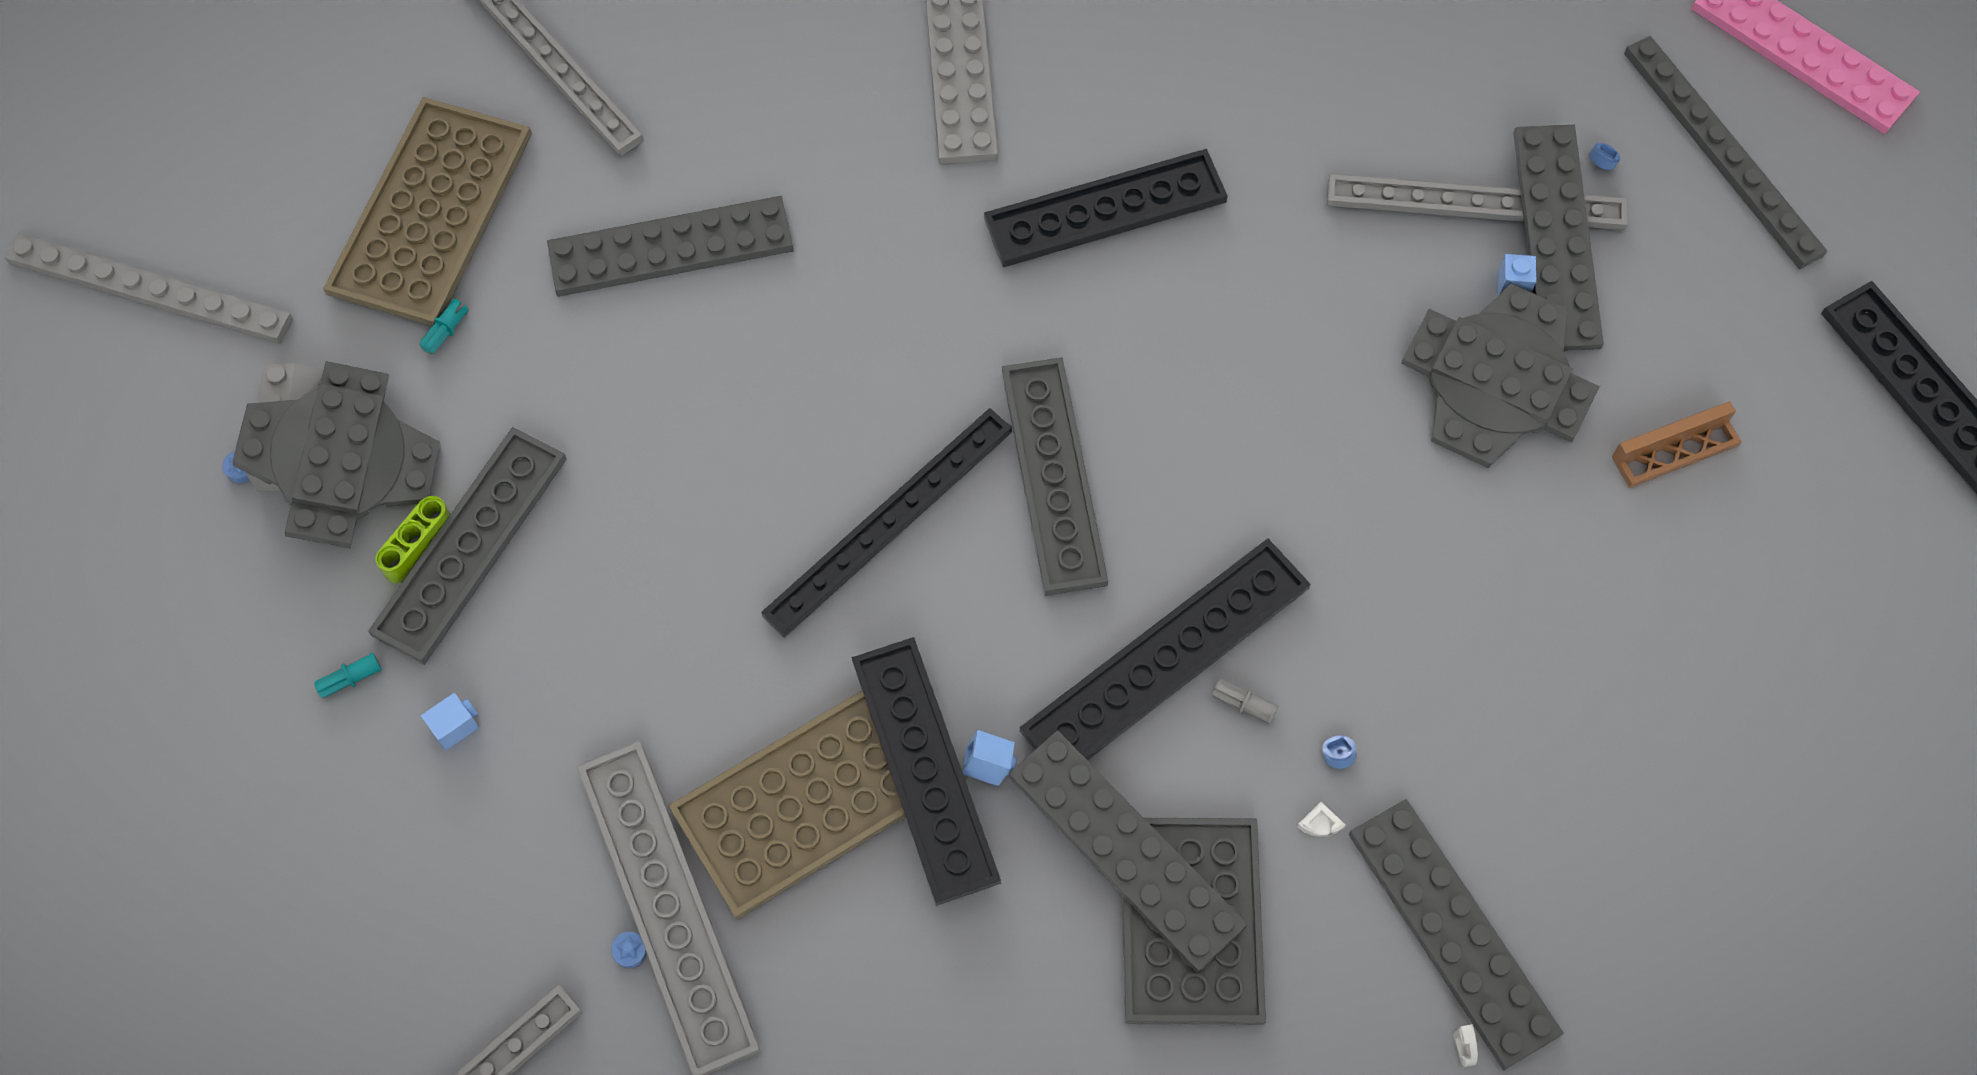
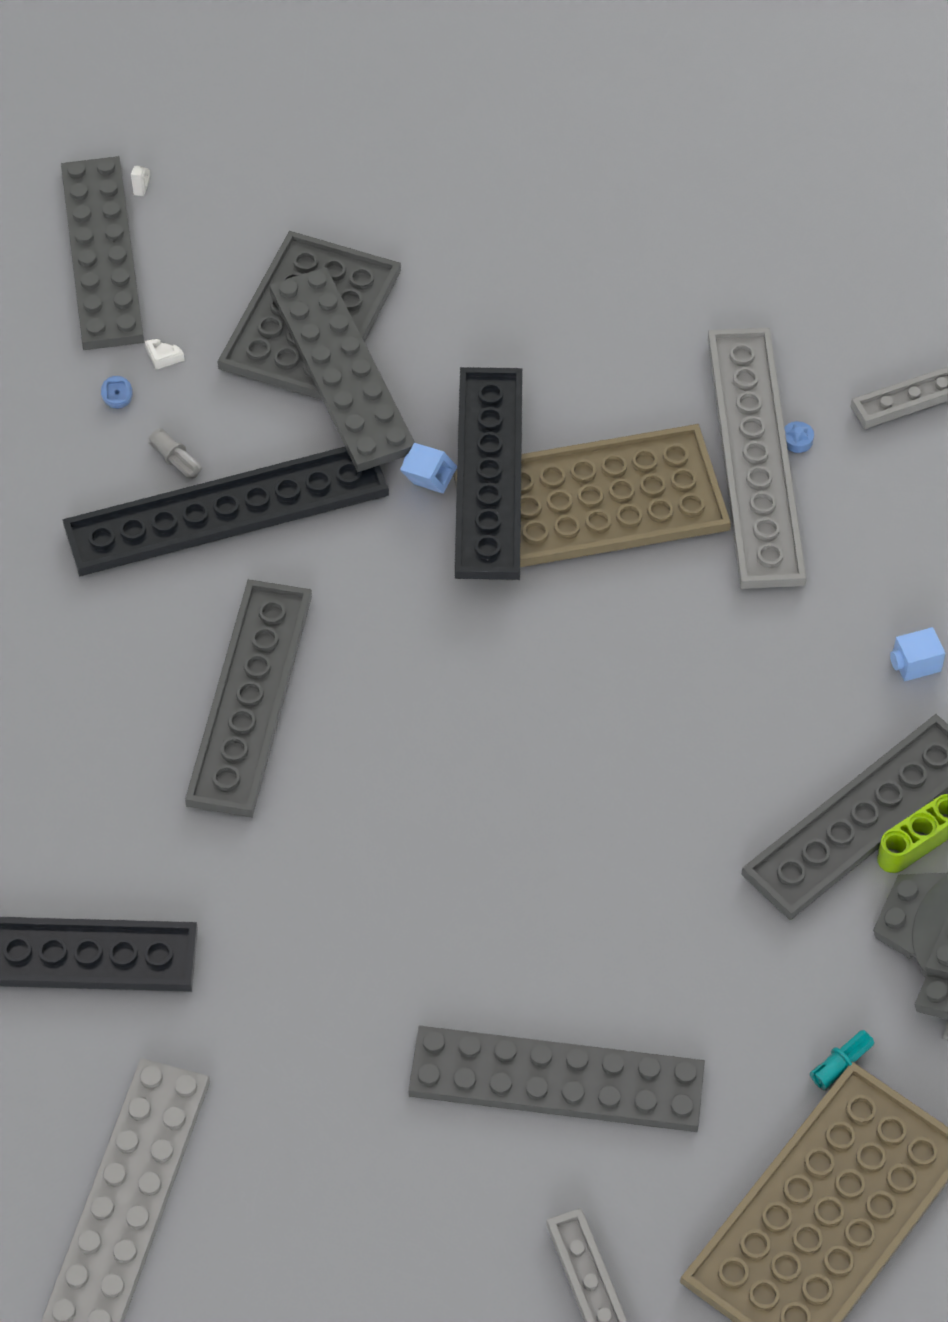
camera: 160 degrees left, 10 degrees down
(886, 523) = (429, 704): black plate -> none

